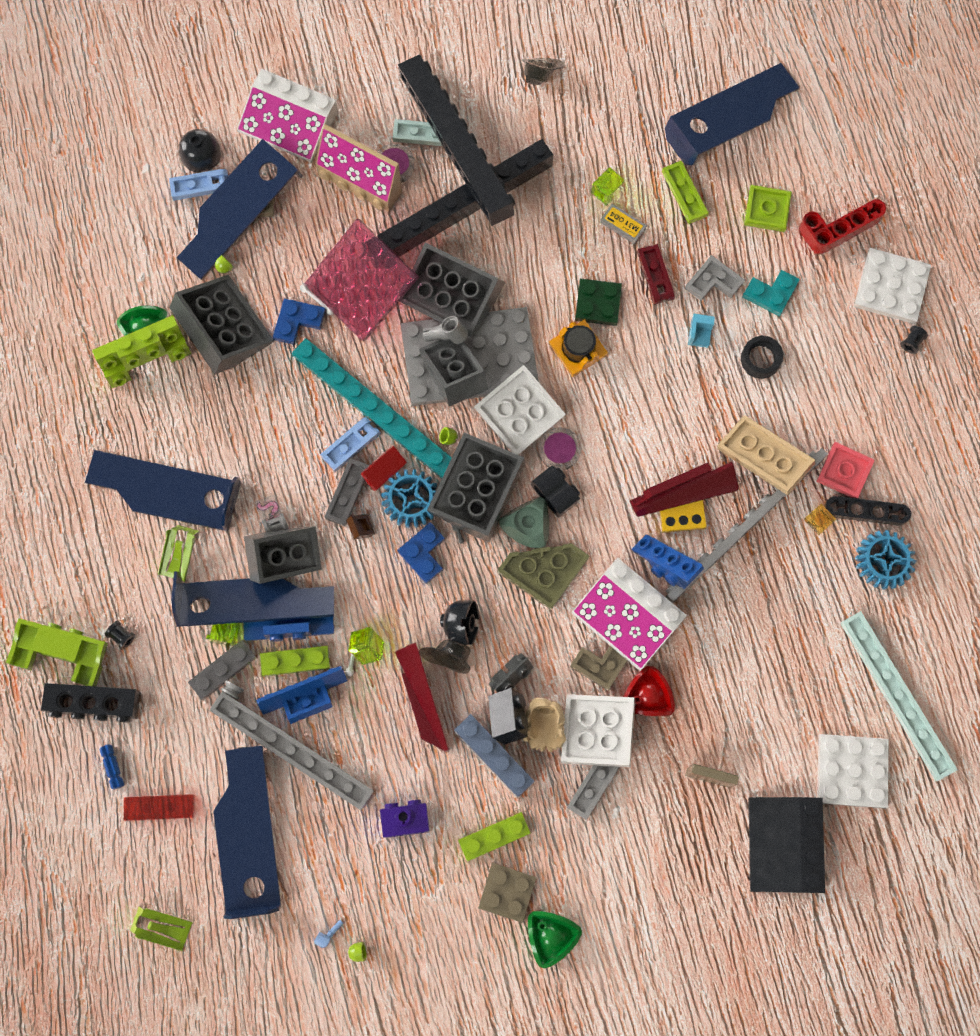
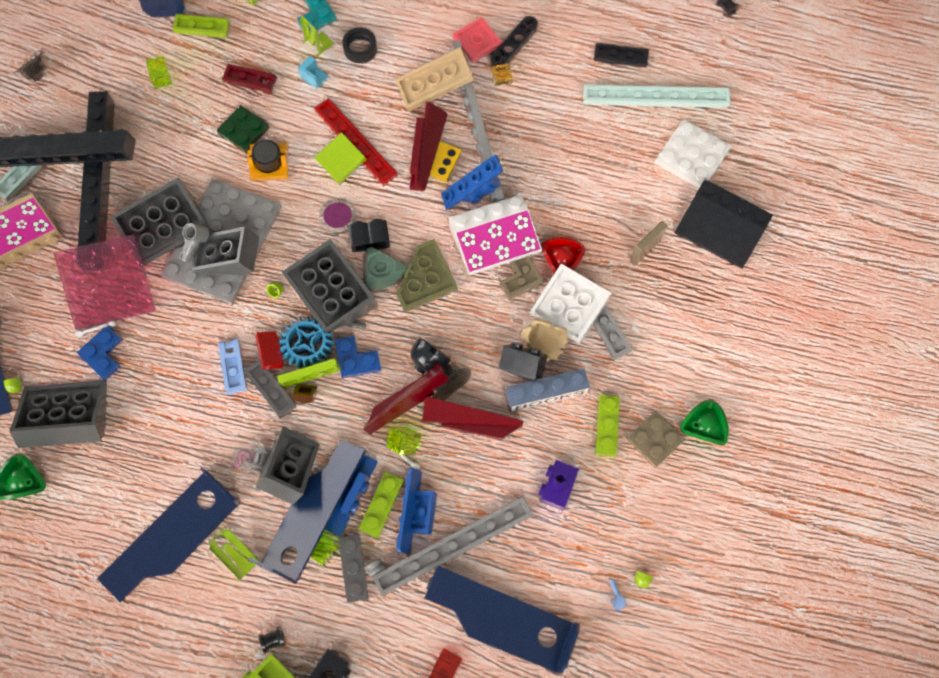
camera: 60 degrees left, 5 degrees down
(139, 348) = (36, 489): lime bracket -> none
(372, 407) = (214, 333): teal plate -> none
(381, 519) = (309, 373): none -> lime tile
(407, 624) = (406, 398): none -> dark red wedge
(518, 667) = (489, 337): dark grey hinge -> none
(519, 410) = (290, 225): white plate -> none
(622, 414) = (340, 158): none -> lime tile
(623, 223) = (195, 79): tile -> none
(651, 417) = (340, 124): none -> red tile
(714, 274) = (278, 40): light grey plate -> none
(748, 313) = (316, 38): none -> lime piece
(888, 542) = (554, 44): dark azure gear -> none
(926, 631) = (621, 55): none -> black tile

